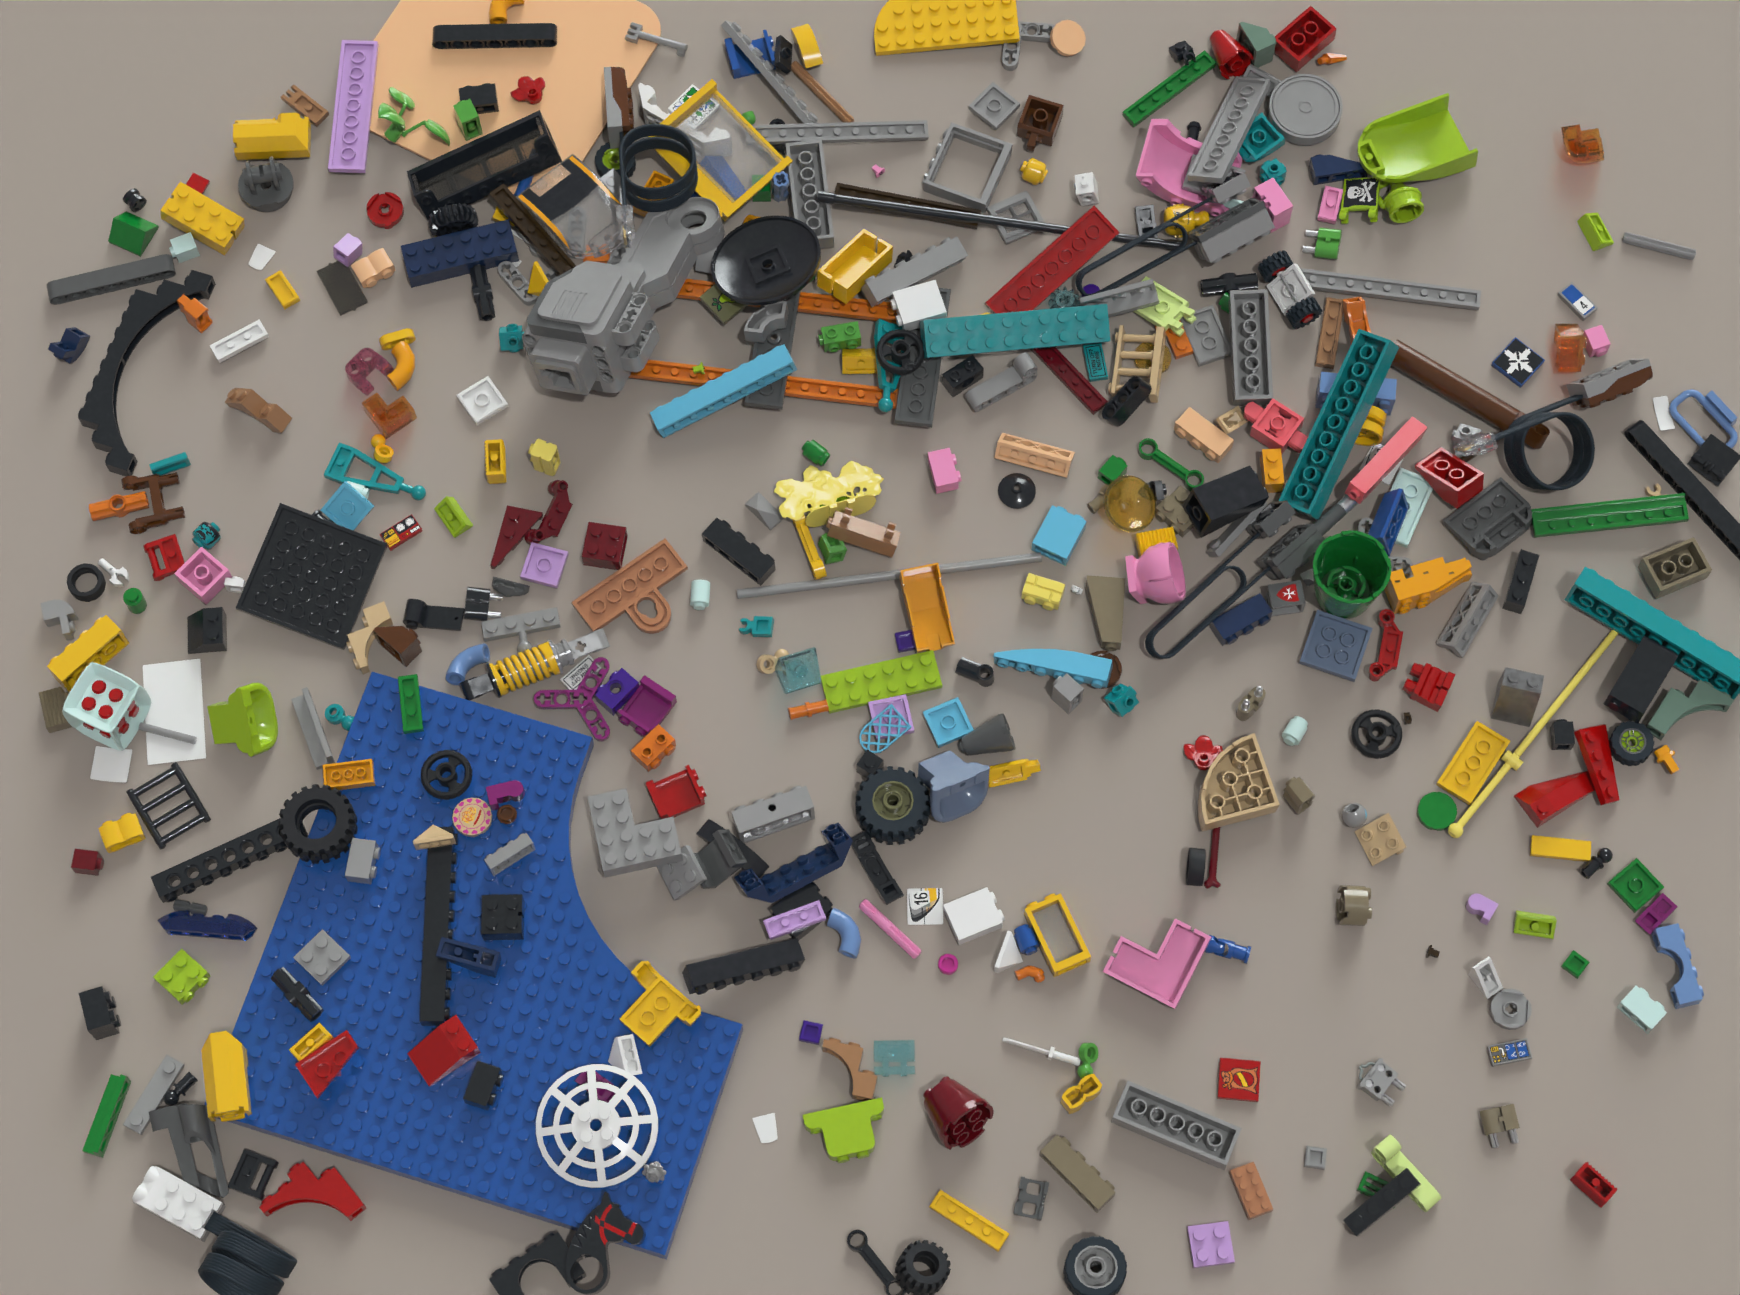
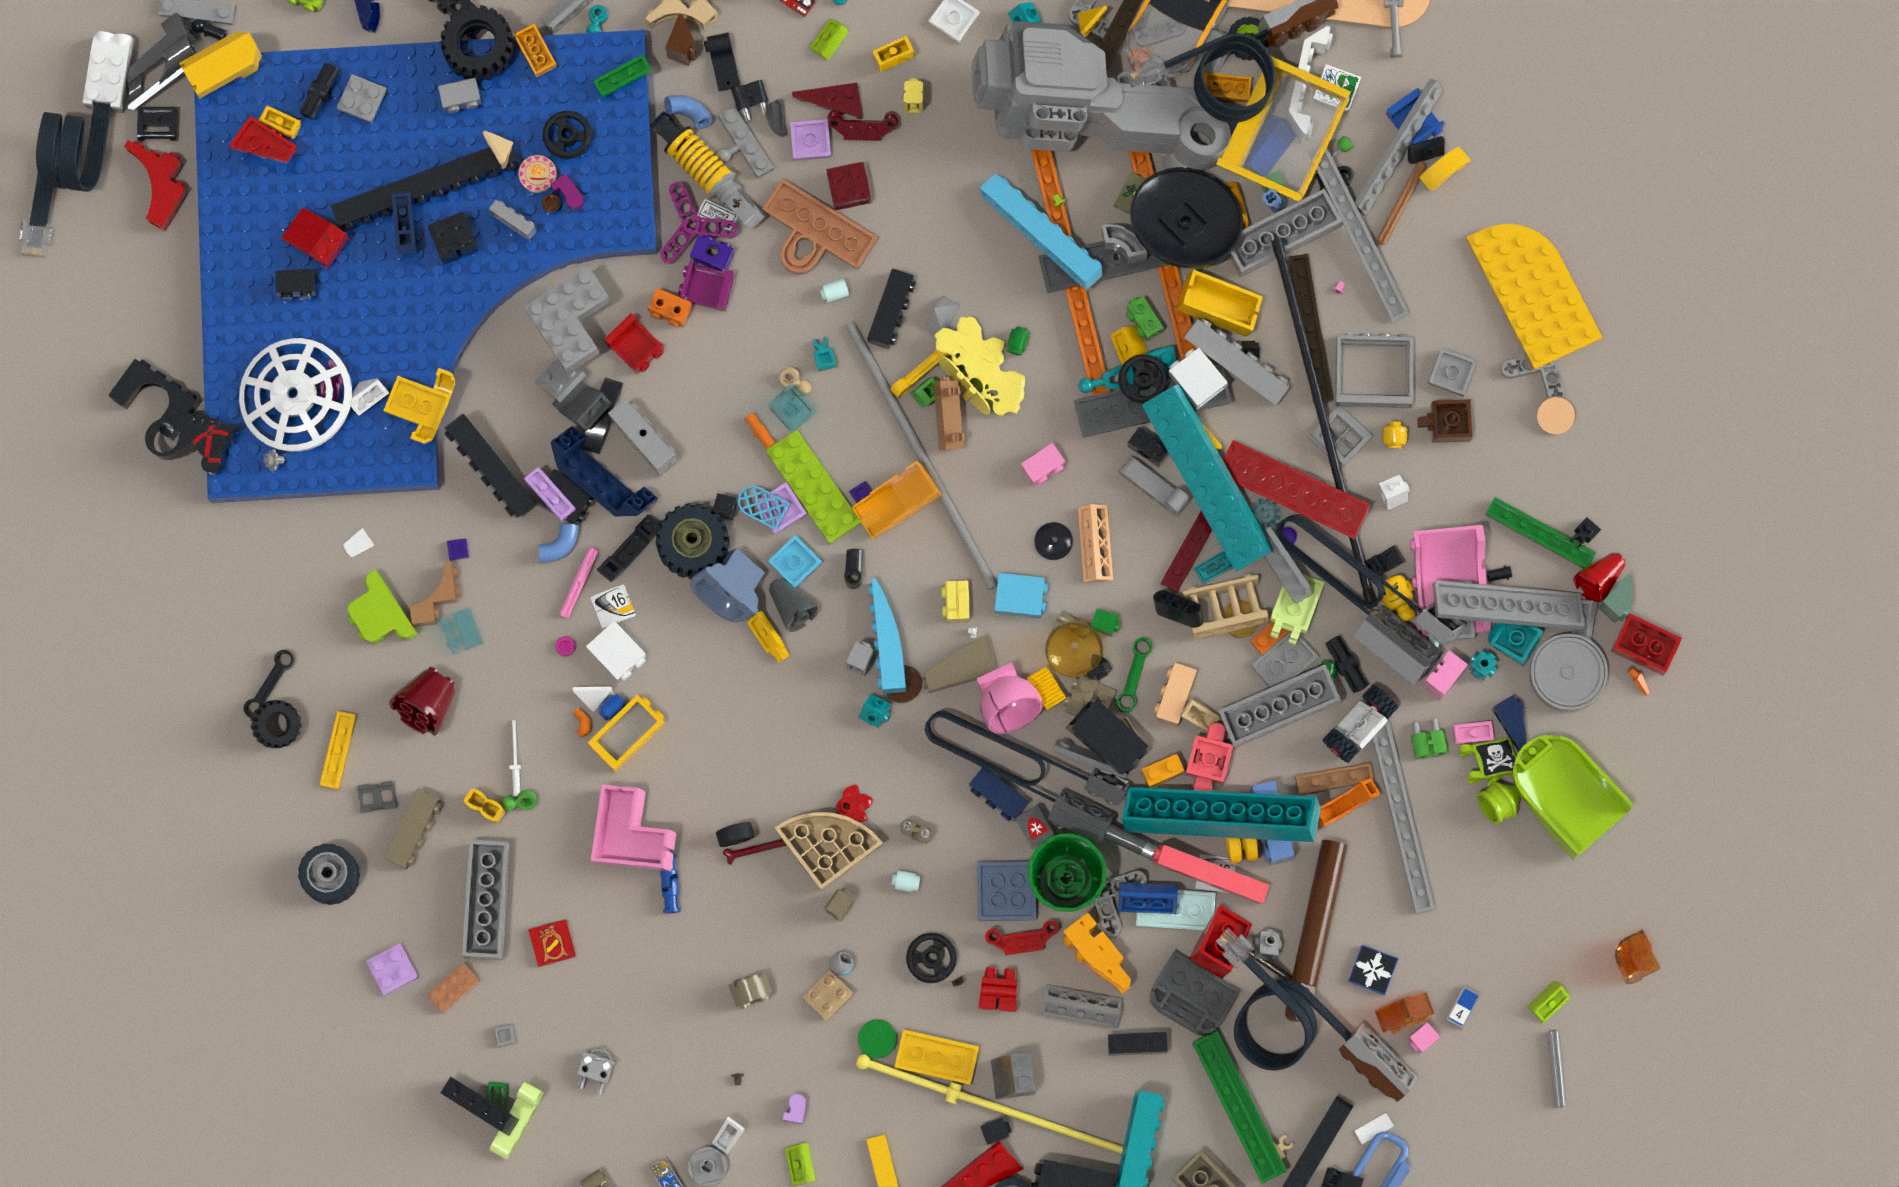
camera: 70 degrees right, 10 degrees up
(1552, 797) = (930, 1140): red wedge -> none

